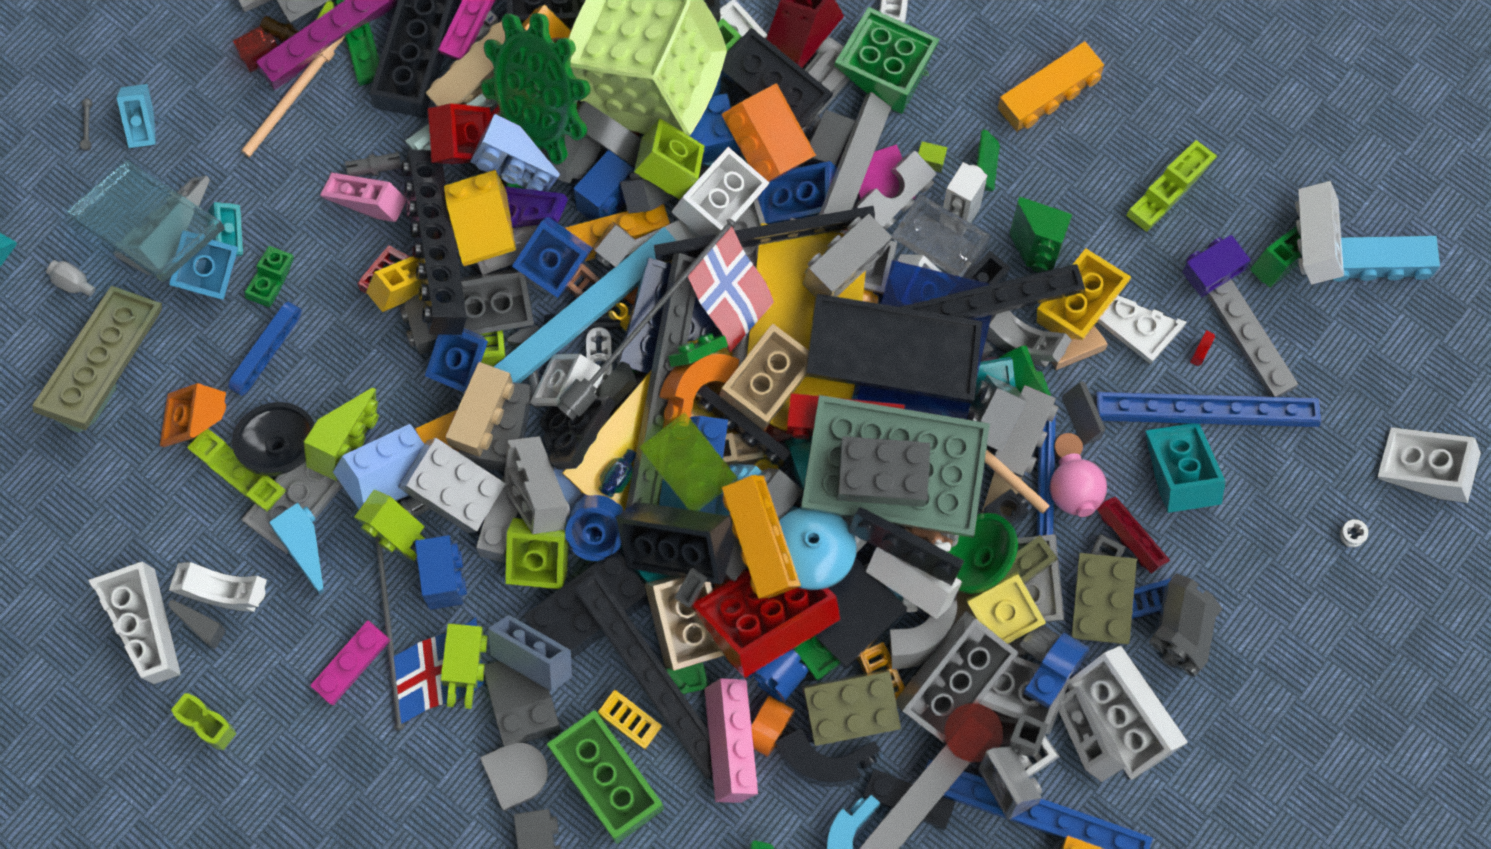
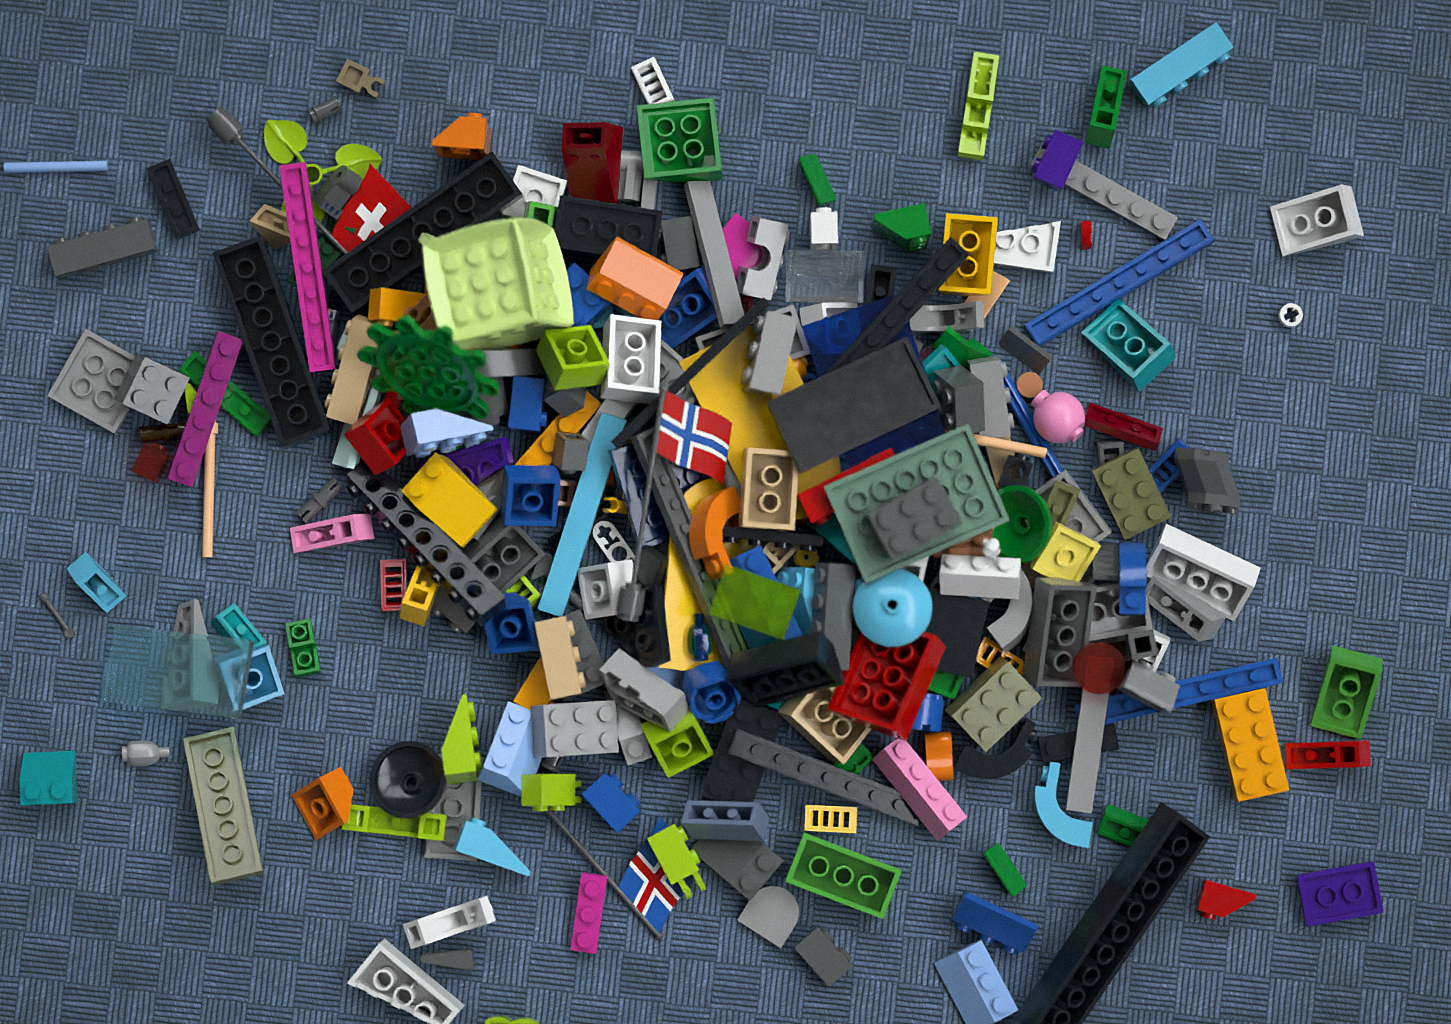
camera: 30 degrees left, 15 degrees up
(264, 348) = (344, 710): blue beam -> none
(691, 588) = (821, 699): dark grey piece -> none
(693, 352) = (699, 503): green plate -> none
(760, 536) = (851, 629): light orange brick -> none
(905, 546) = (964, 563): black plate -> none
(933, 155) = (768, 202): lime slope -> none
(1051, 86) = (828, 79): light orange brick -> none
(1319, 233) = (1124, 81): white brick -> none

